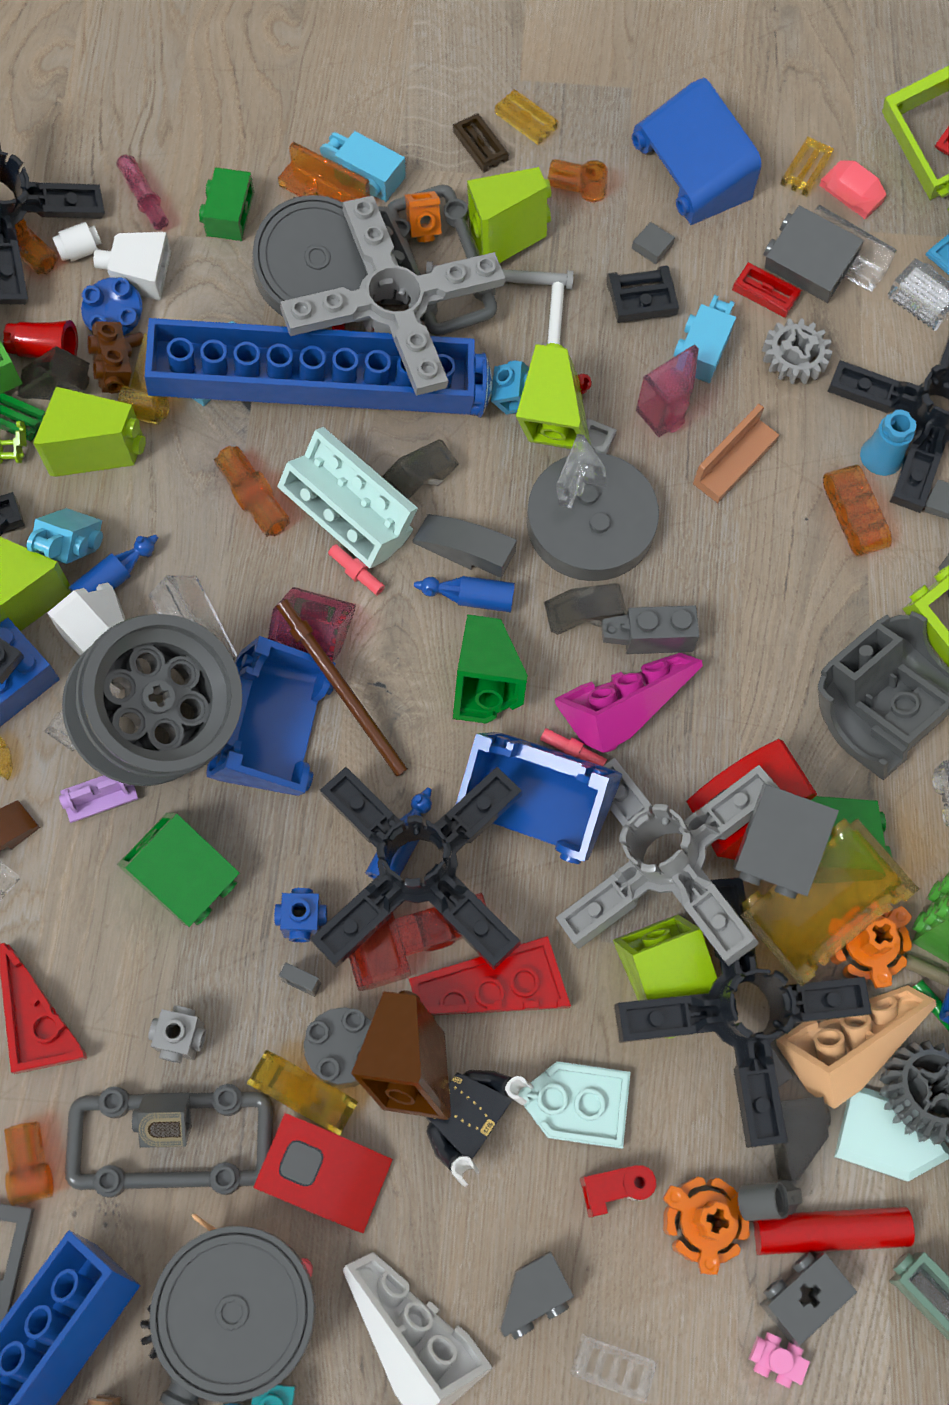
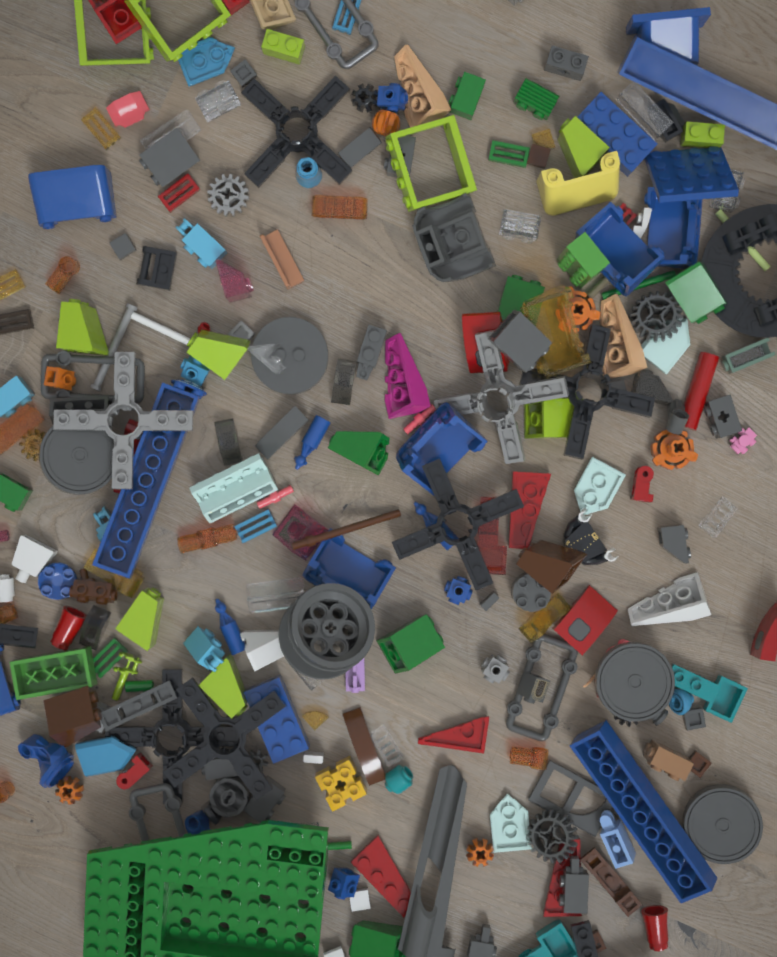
camera: 65 degrees left, 20 degrees up
(279, 540) = (241, 533): none -> dark azure tile

